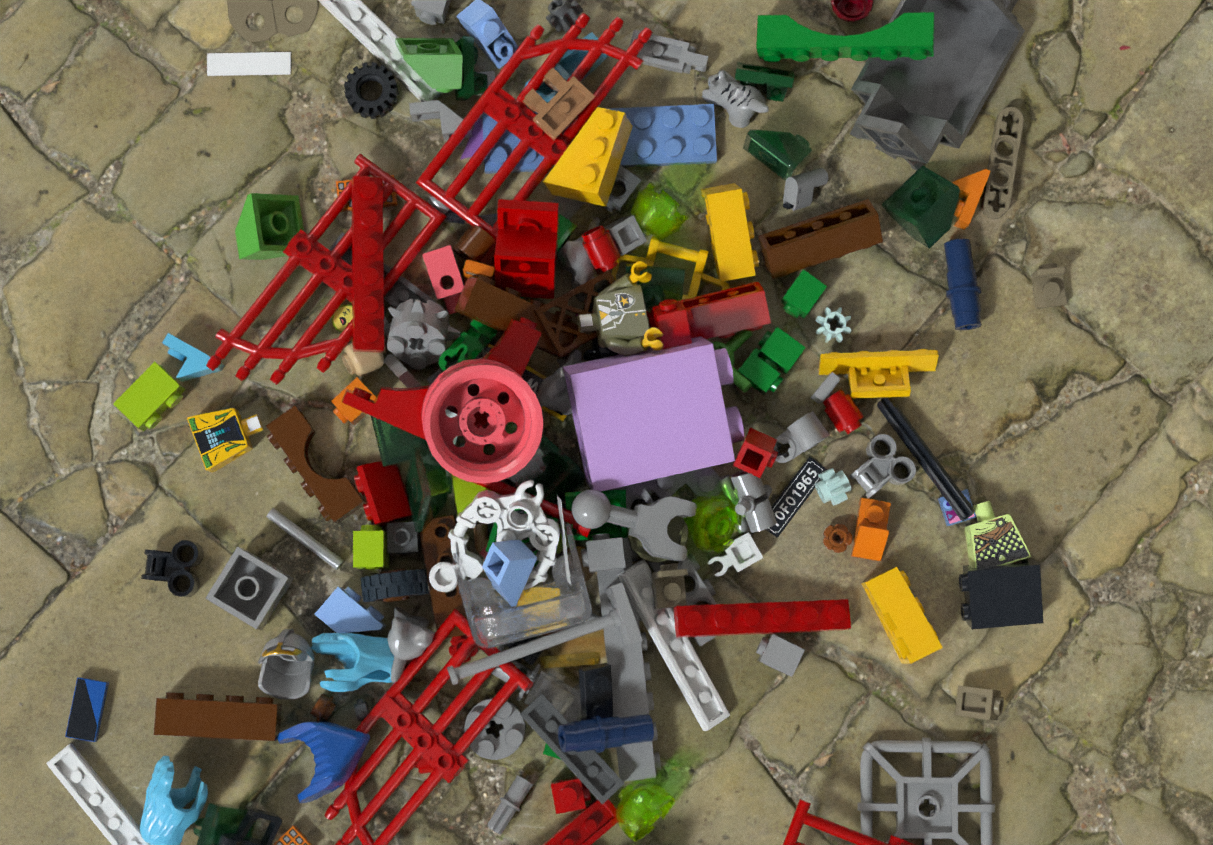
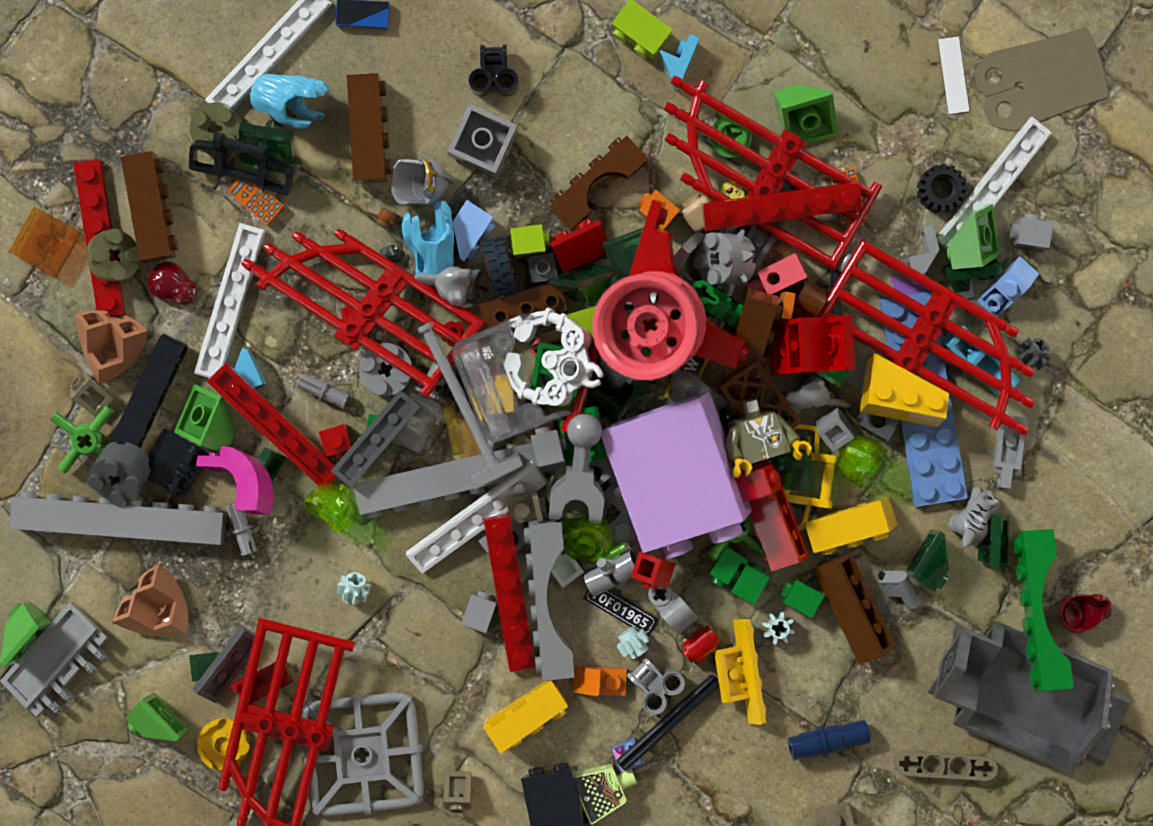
camera: 90 degrees right, 5 degrees up
(223, 436) = (614, 99): torso -> none
(273, 307) = (735, 128): none -> bright green gear
(305, 539) = (532, 182): light grey bar -> none
(334, 751) = (350, 233): blue animal -> none
(443, 577) = (511, 307): white tile -> none
(509, 568) = (524, 365): light blue slope -> none
(563, 107) = (943, 362): medium nougat plate -> none
(564, 540) = (553, 410): white sticker -> none
(596, 691) = (417, 456): black hinge -> none
(600, 248) = (820, 412): red brick -> none
(605, 733) = (392, 466): dark blue piece -> none
(716, 570) = (554, 651): none -> light grey arch
(738, 795) = (353, 588): none -> light aqua gear
(825, 388) = (720, 627): light grey tile -> none
(829, 539) = (595, 653): dark orange plate -> none
(924, 206) = (896, 698): clear green slope -> none
(971, 191) = (916, 738): orange slope -> none

